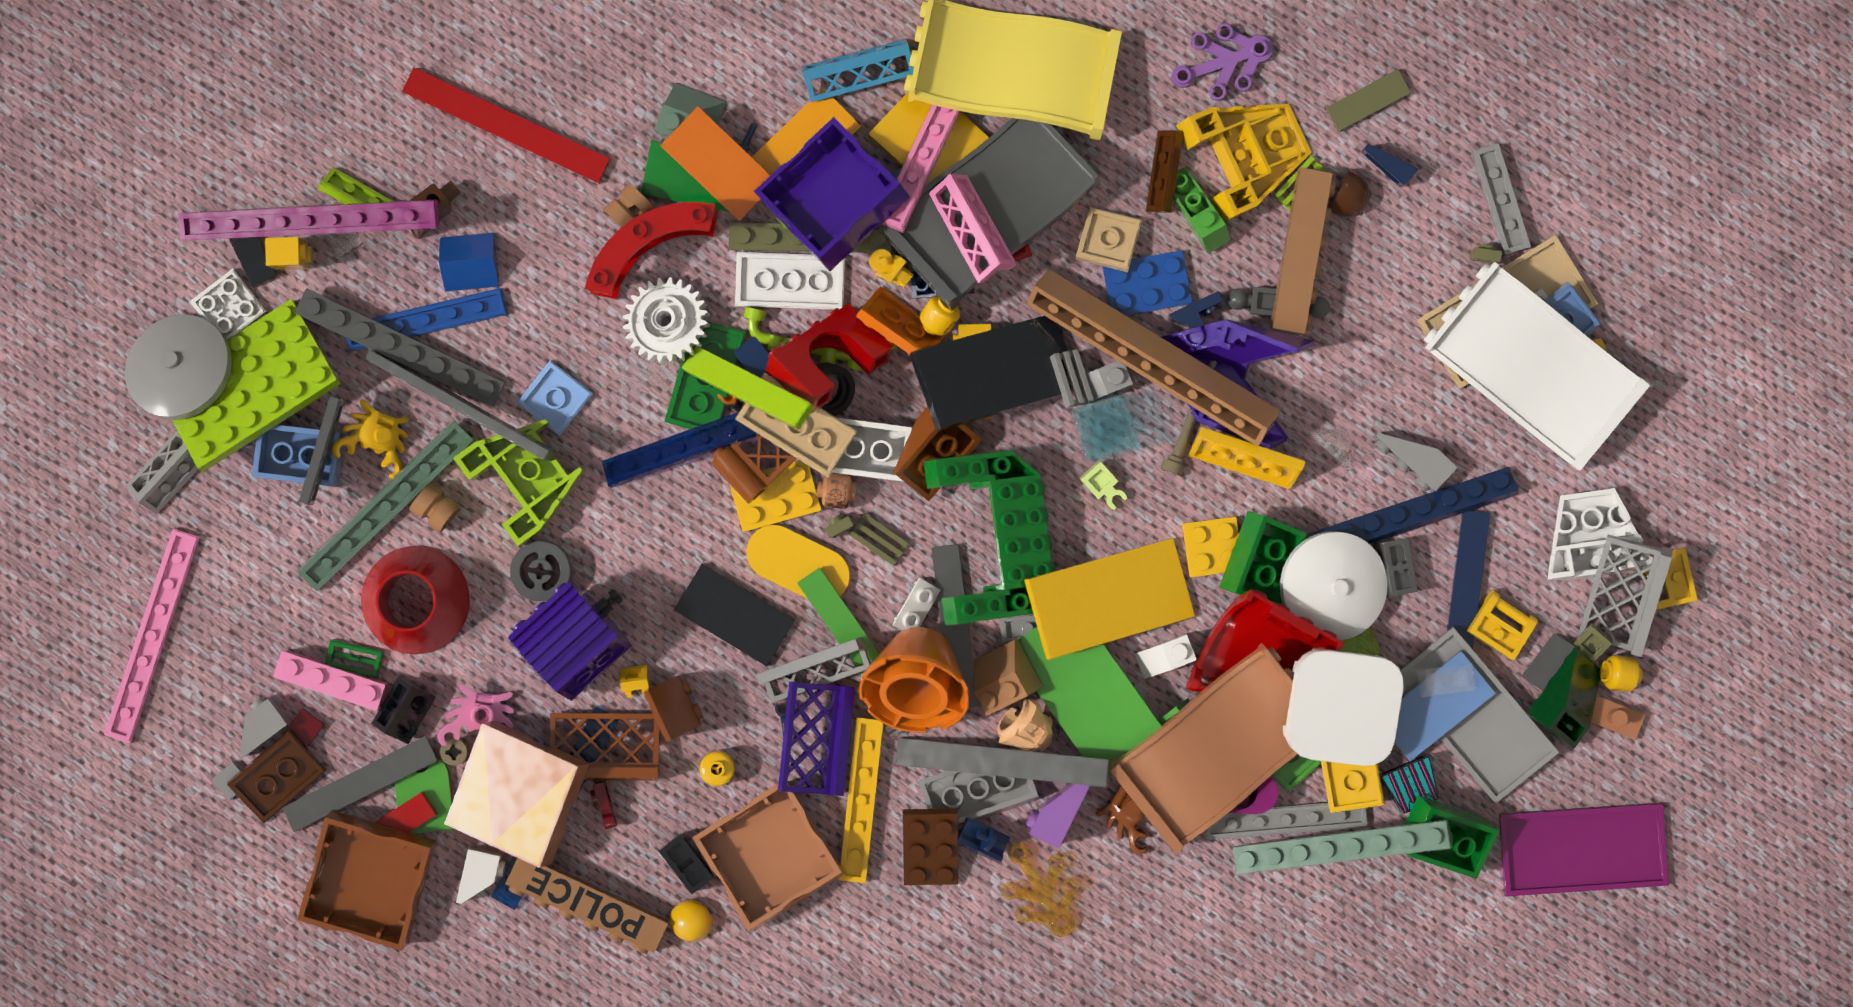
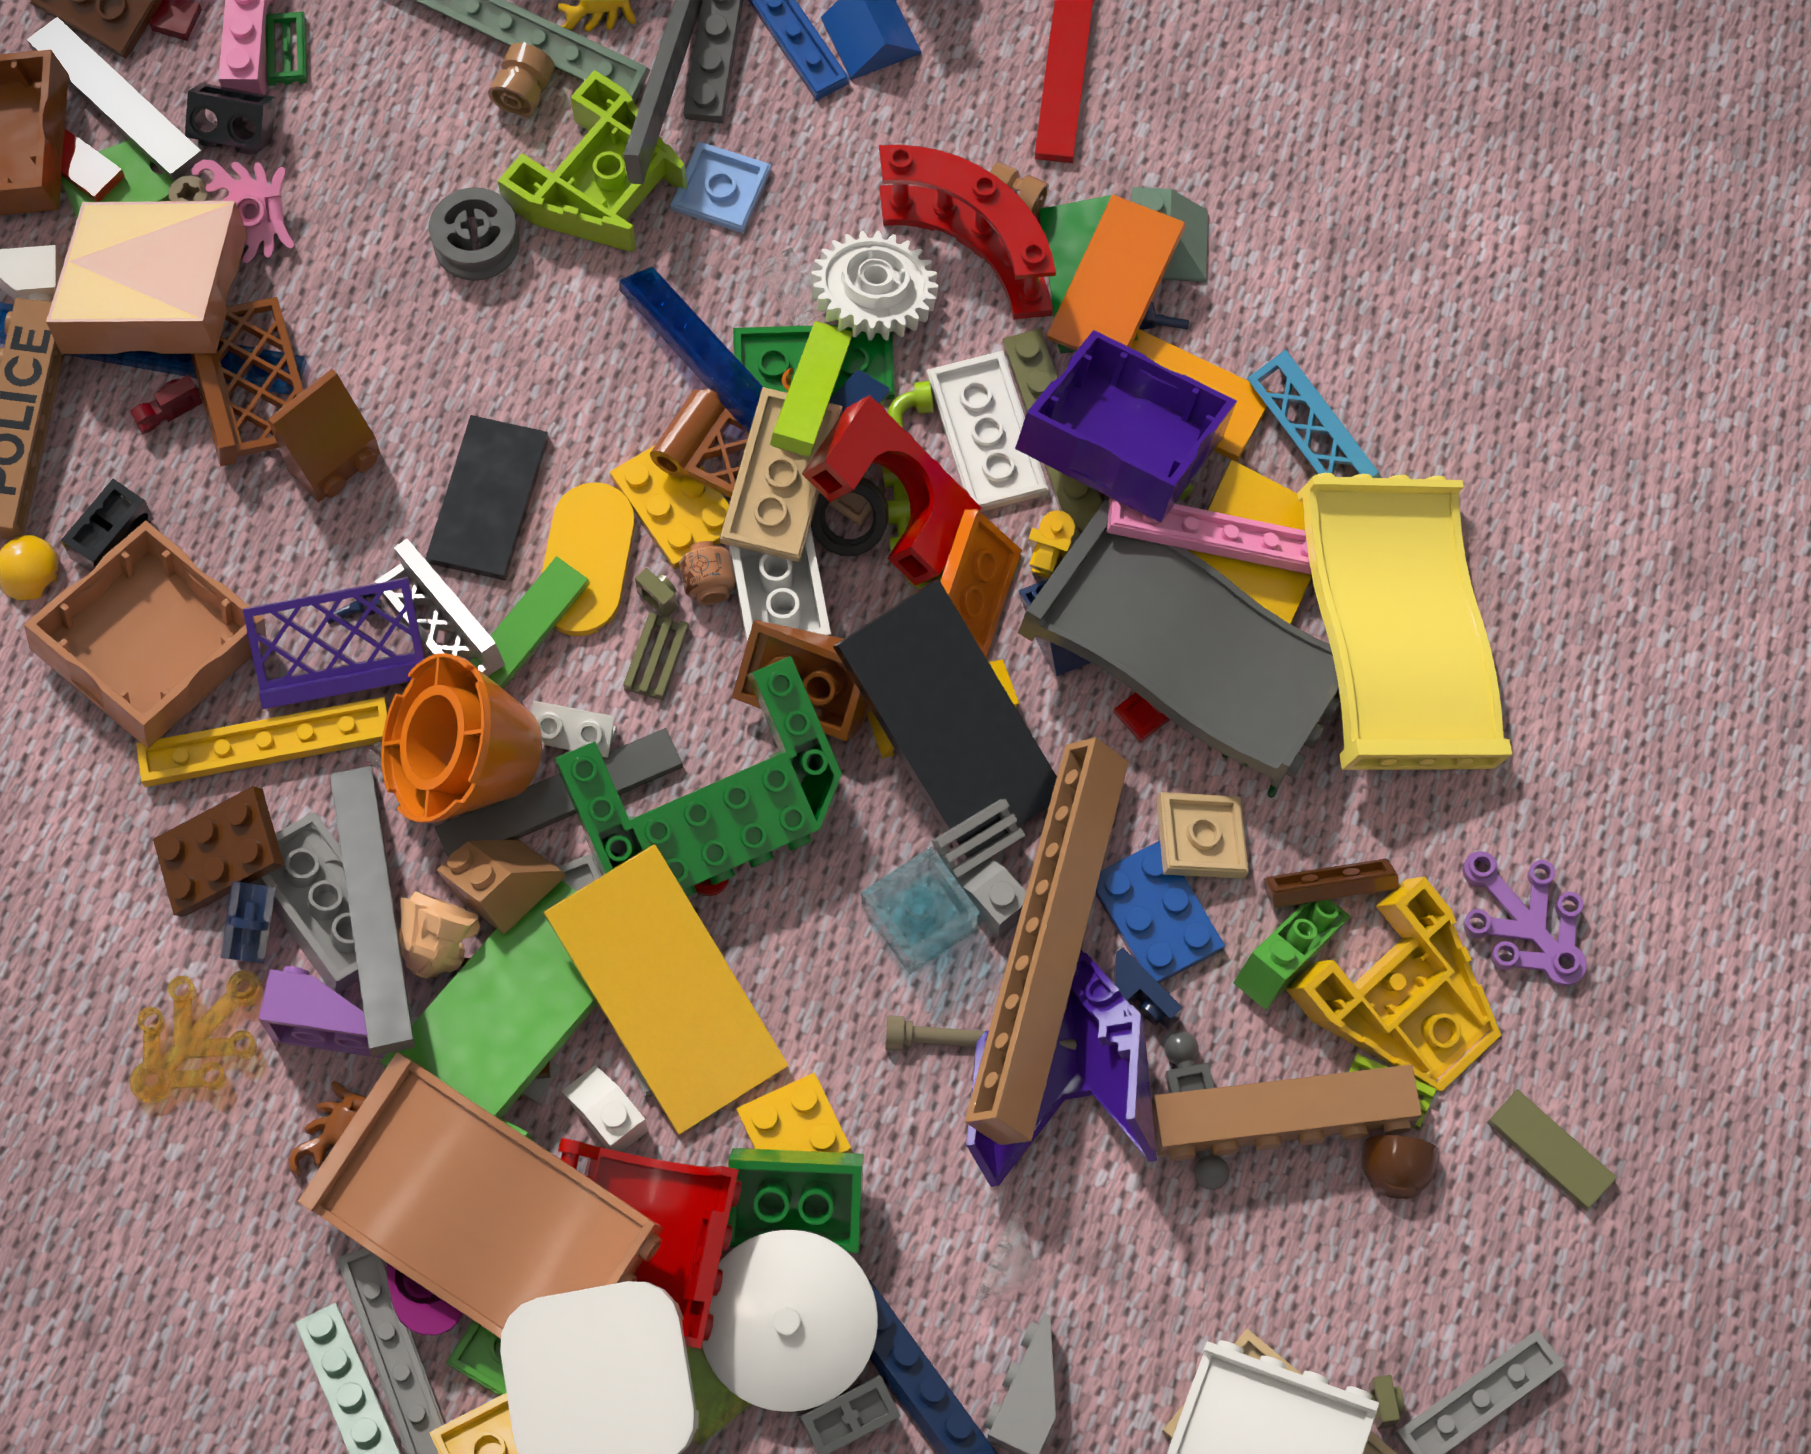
camera: 70 degrees right, 20 degrees down
(449, 595) = (392, 121): red cone -> none
(570, 639) = (383, 275): dark purple piece -> none
(634, 679) = (361, 390): yellow tile -> none
(724, 760) = (257, 532): yellow head -> none
(937, 317) = (999, 630): yellow head -> none
(980, 224) = (1155, 618): bright pink fence -> none
(1101, 482) = (839, 934): yellowish green plate -> none
(1246, 458) = (943, 1127): yellow tile -> none
(1391, 166) = (1465, 1220): dark blue slope -> none

